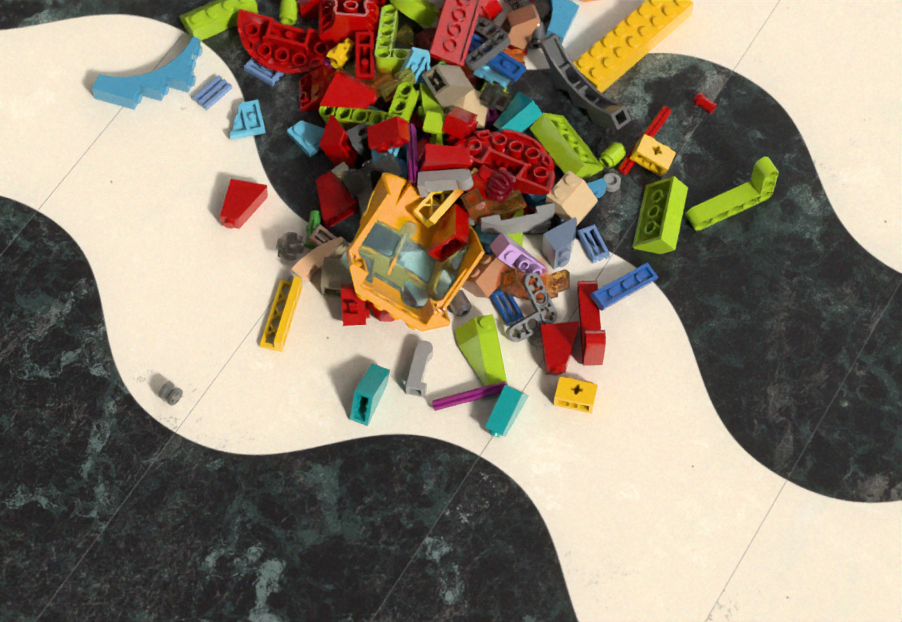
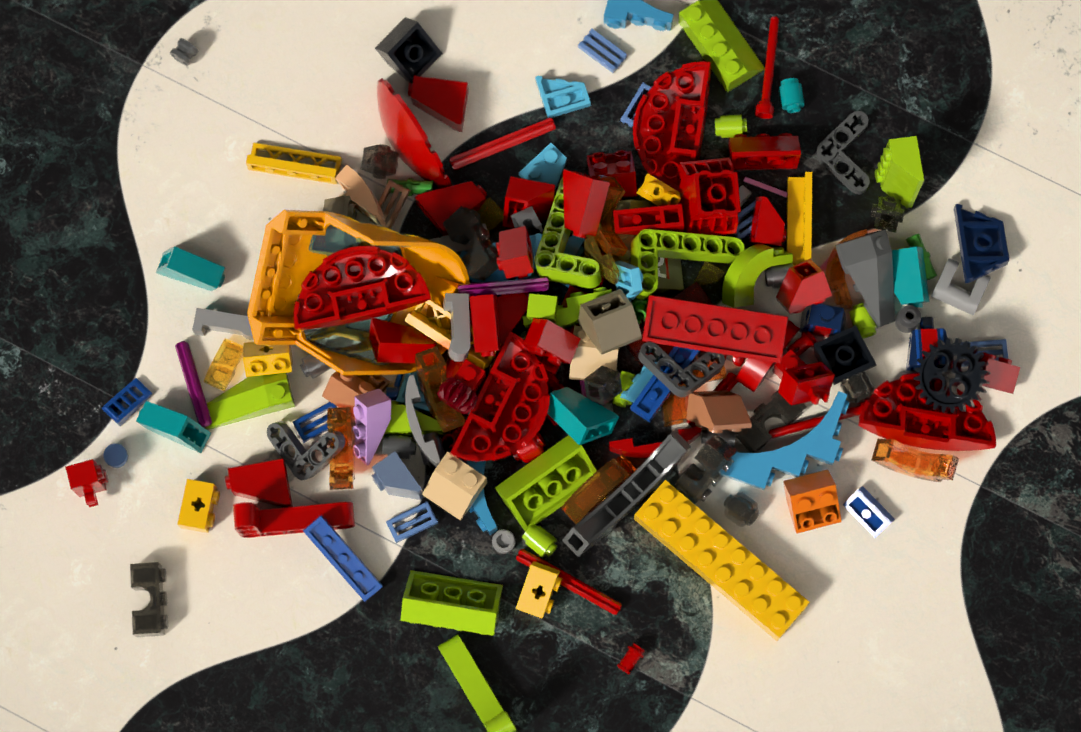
camera: 90 degrees right, 15 degrees up
(192, 224) = (408, 49): none -> black slope
(267, 221) = (408, 136): none -> red brick
(283, 165) = (502, 143): none -> red axle
(402, 251) = (358, 287): none -> red brick
(454, 337) = (266, 359): none -> yellow brick
(454, 371) = (224, 364): none -> clear yellow slope
(486, 462) = (115, 402): none -> blue slope
(528, 459) = (115, 455): none -> medium blue tile
(533, 244) = (400, 444): none -> dark grey brick
(537, 59) = (627, 448): none -> red slope
(552, 474) = (87, 480): none -> red brick
(559, 23) = (715, 457): none -> clear smoke arch
(577, 110) = (597, 488): none -> clear orange arch
(593, 25) = (741, 509): none -> clear smoke head
(669, 431) = (150, 620): none -> clear smoke arch

